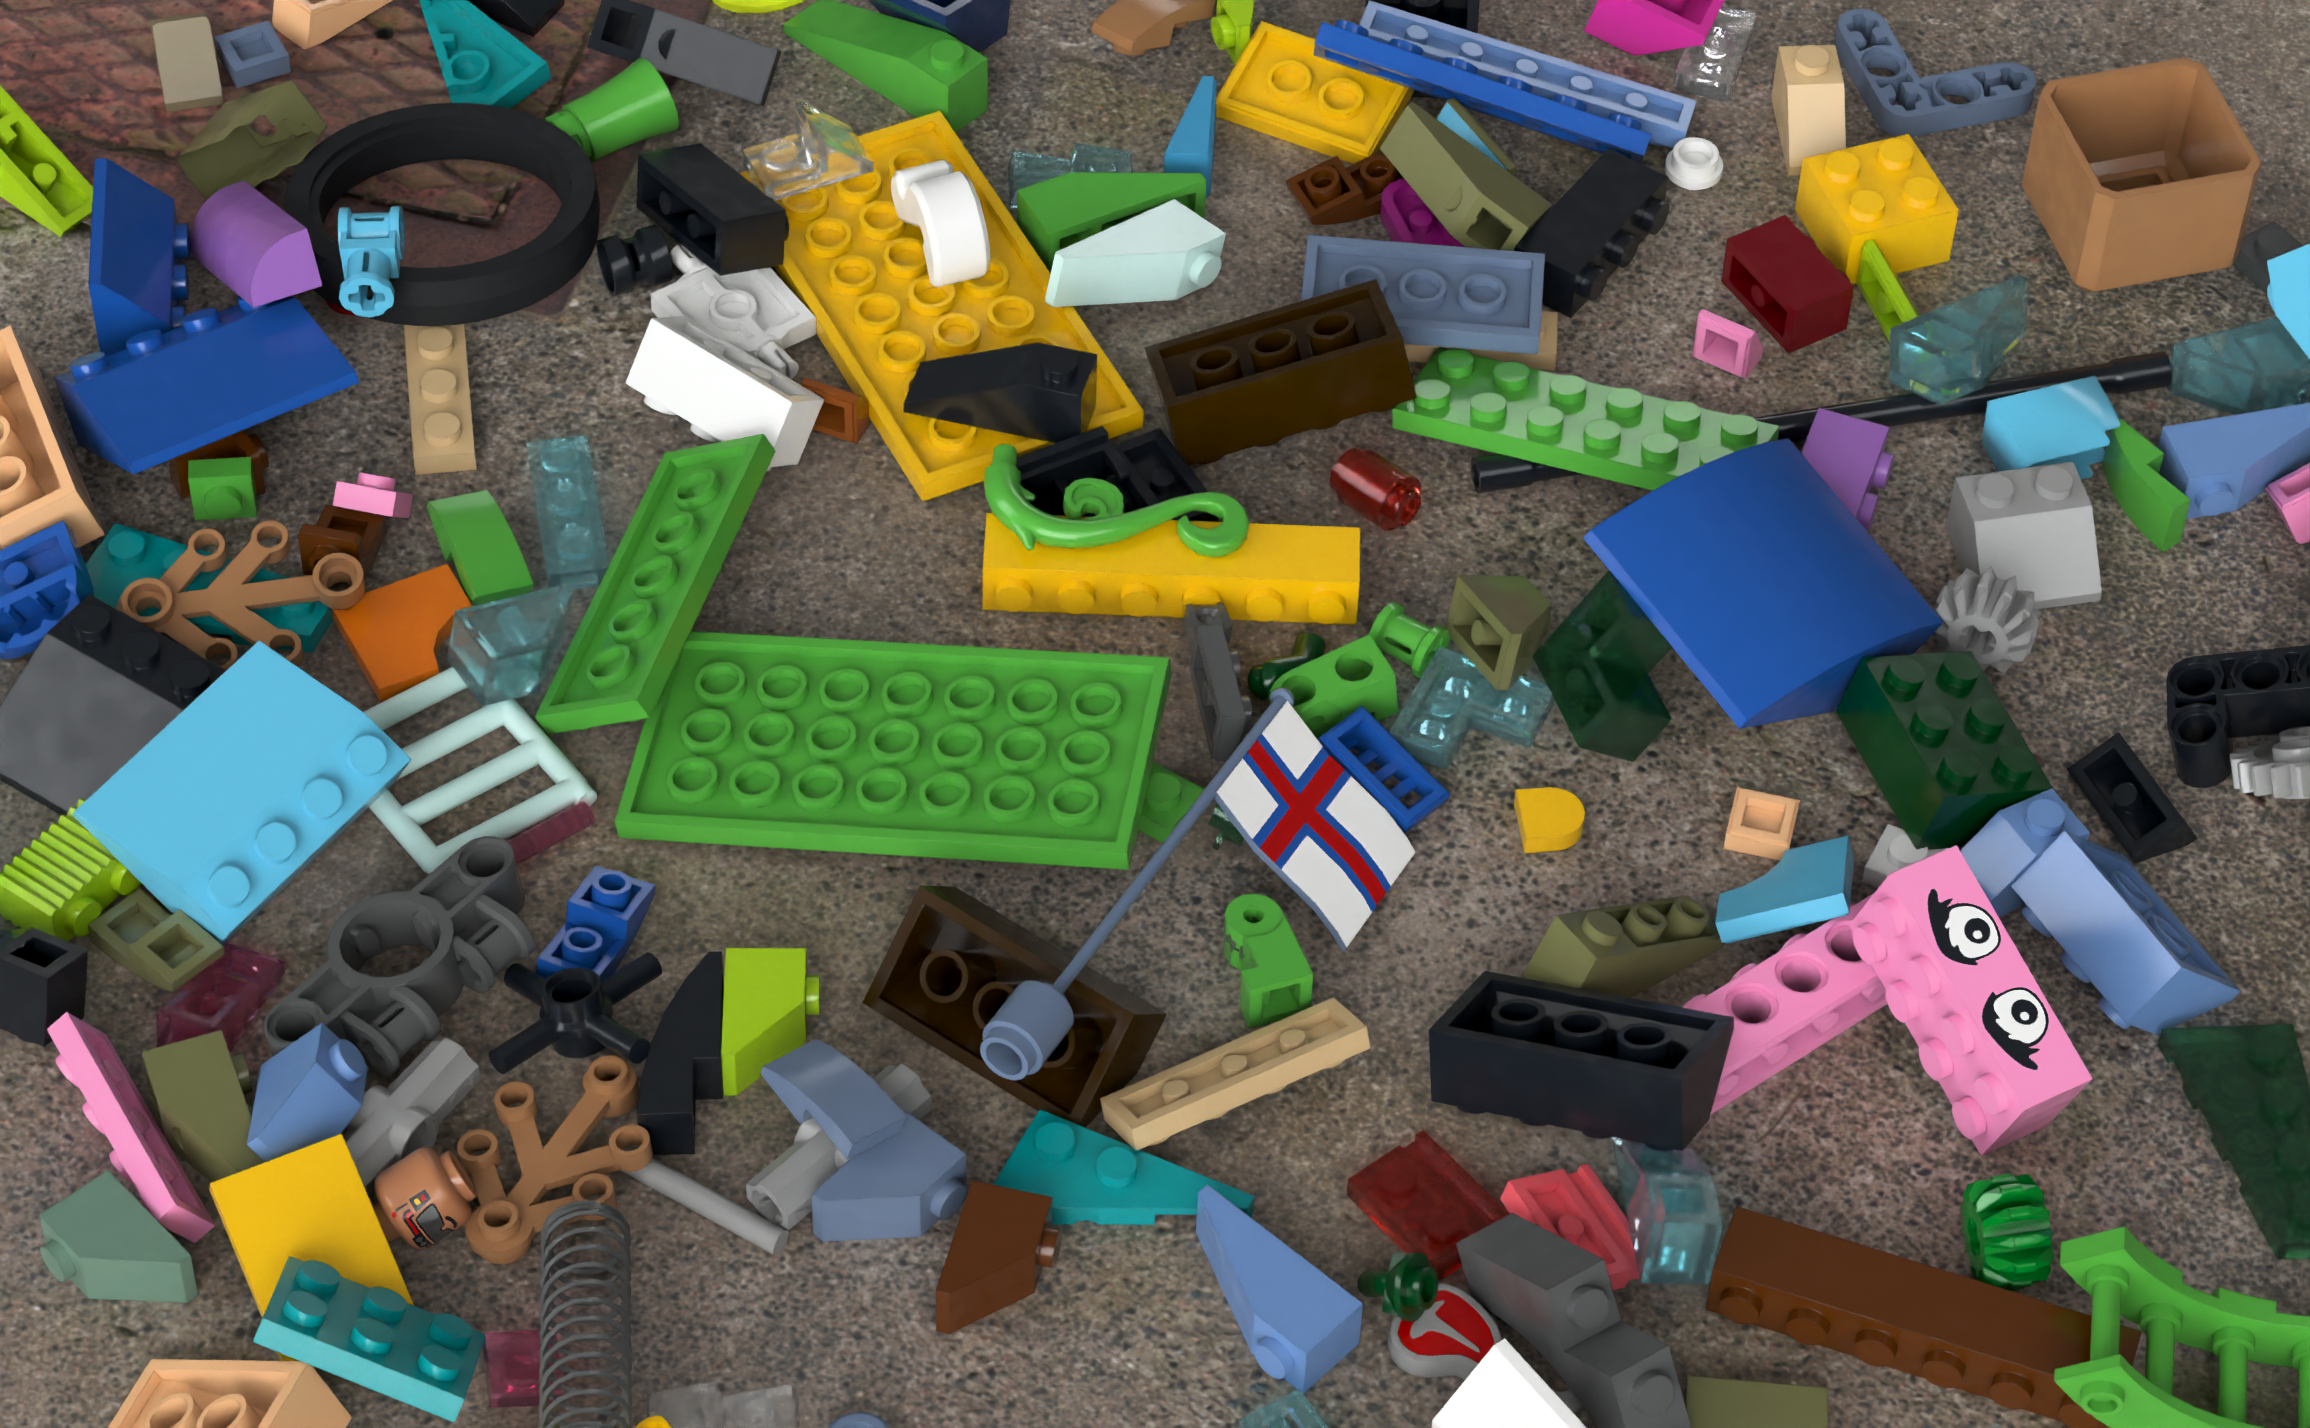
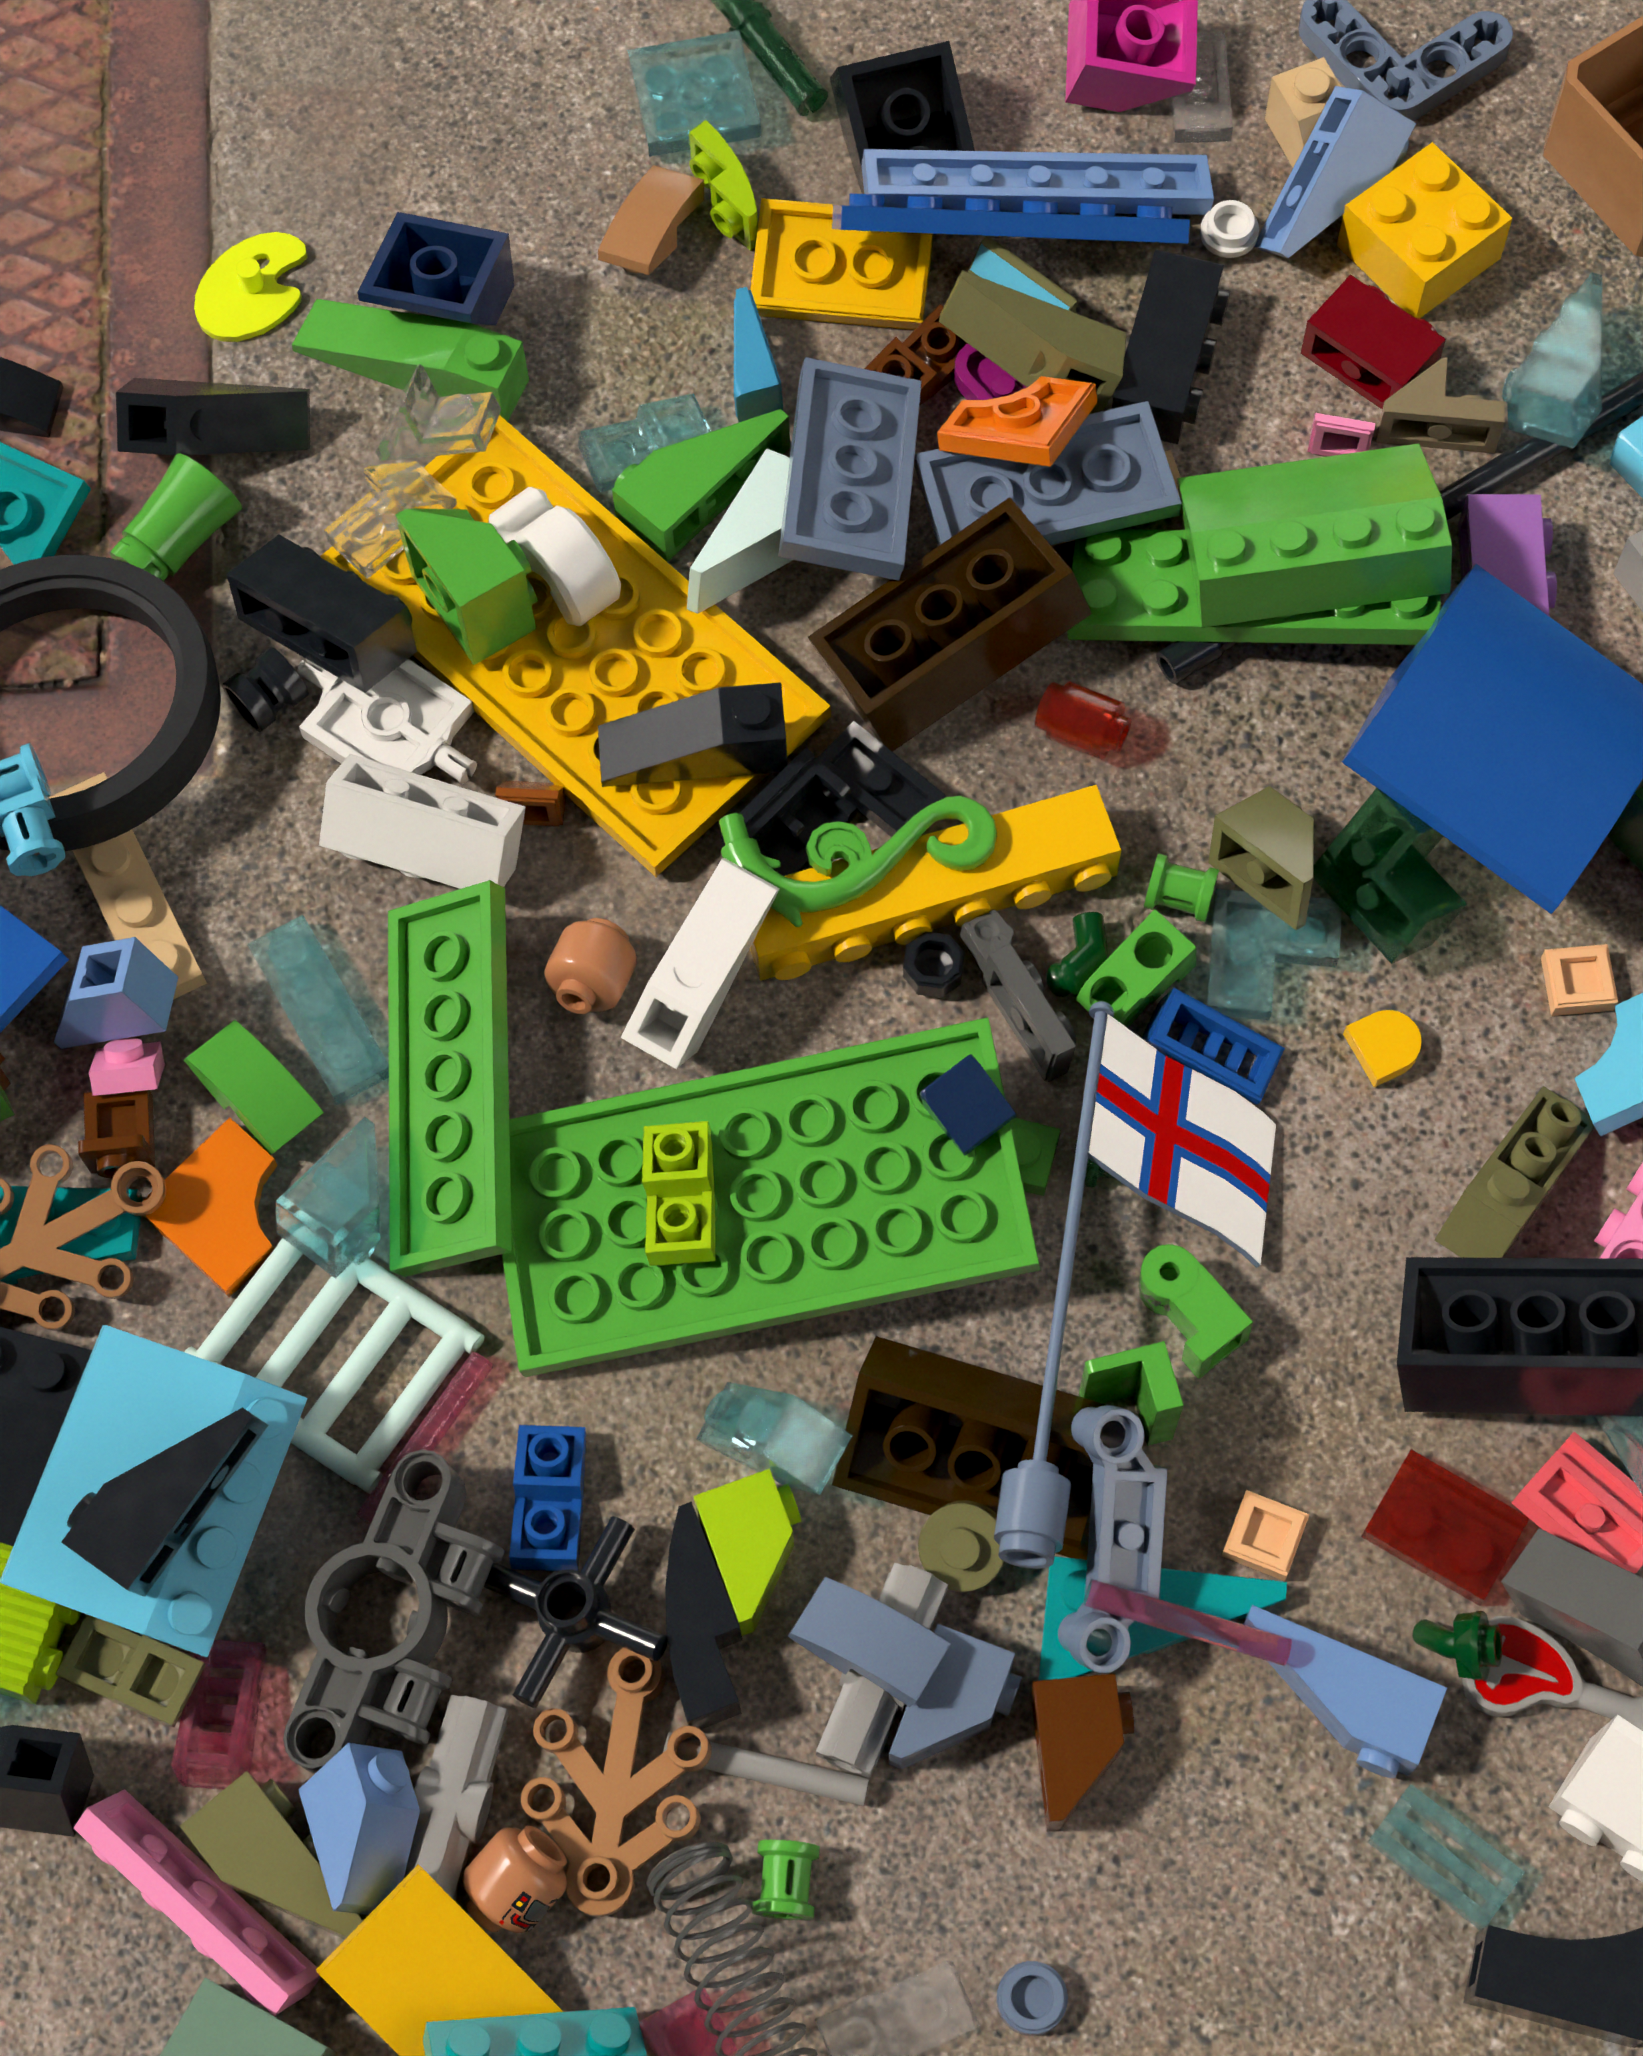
camera: 15 degrees left, 20 degrees up
(245, 771) = (151, 1510): none -> black slope
(387, 430) = (115, 994): none -> medium blue slope
(672, 1278) = (786, 1879): none -> bright green bush
(824, 715) = (679, 1193): none -> lime slope
(828, 542) = (590, 965): none -> nougat head
(832, 926) = (775, 1433): none -> clear light blue slope
(854, 209) = (469, 578): none -> bright green slope
(874, 103) = (437, 425): none -> clear slope
(923, 554) = (700, 965): none -> white slope
(959, 1078) = (961, 1546): none -> olive wheel
(1110, 1079) = (1122, 1531): none -> sand blue plate
(1115, 707) = (967, 1104): none -> dark blue slope
(1136, 1167) = (1188, 1622): none -> clear pink bar
(1147, 631) = (933, 964): none -> black tile
(1173, 975) = (1145, 1376): none -> bright green panel
(1235, 1074) = (1234, 1434): tan plate -> none
(1241, 227) = (851, 469): none -> sand blue plate
(1253, 1160) = (1265, 1535): none -> light nougat tile
(1416, 235) = (1023, 426): none -> orange tile
(1645, 391) = (1315, 535): none -> bright green slope
(1817, 351) = (1433, 420): none -> dark tan slope
(1830, 116) = (1345, 154): none -> medium blue slope
(1884, 289) = (1472, 333): lime slope -> none

